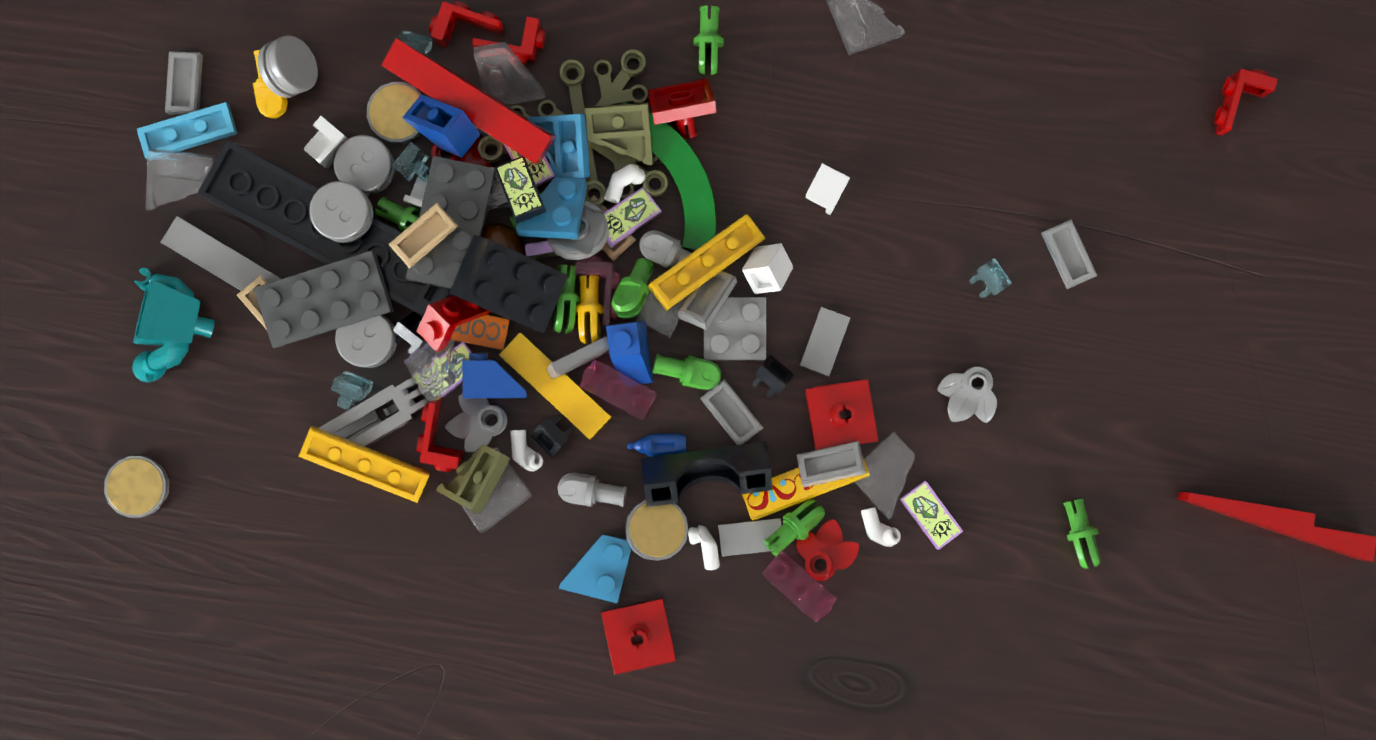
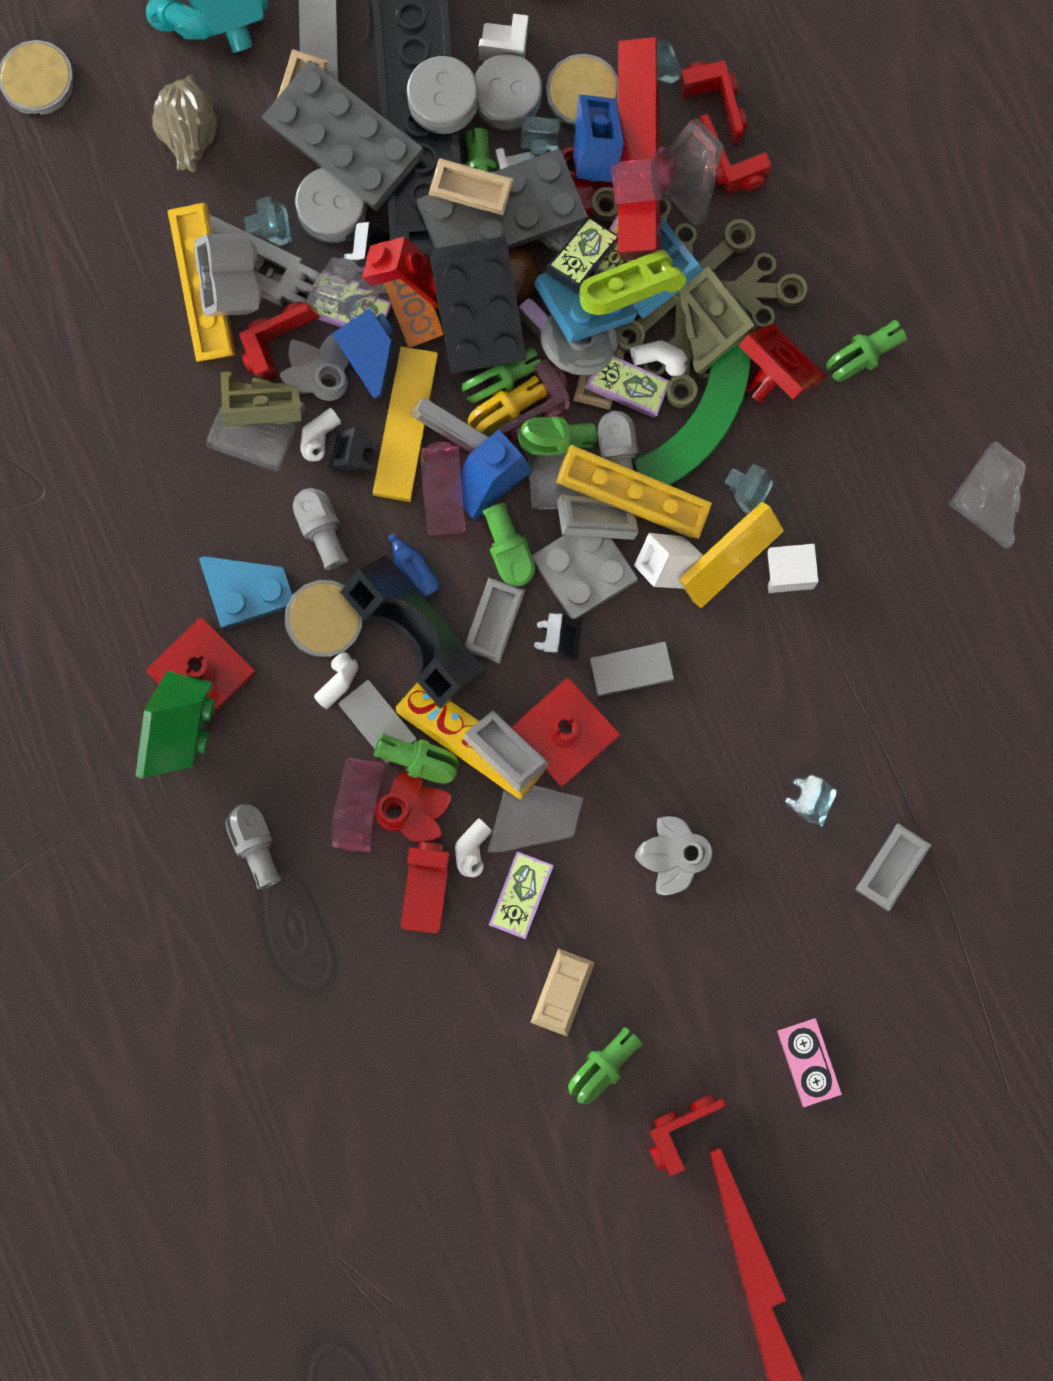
camera: 50 degrees right, 5 degrees down
(239, 402) = (185, 121): none -> dark tan hair
(373, 444) = (227, 274): none -> light grey brick
(496, 112) = (644, 178): none -> clear pink bracket
(564, 170) = (630, 283): none -> lime plate
(670, 680) = (175, 725): none -> green slope
(753, 180) = (749, 488): none -> clear light blue tile
(779, 675) = (252, 841): none -> light grey arm
(790, 223) = (731, 554): none -> yellow tile
(887, 577) = (425, 888): none -> red bracket
(1013, 528) = (562, 992): none -> tan tile
(1148, 512) = (664, 1152): none -> red bracket
(1163, 395) = (809, 1062): none -> tile

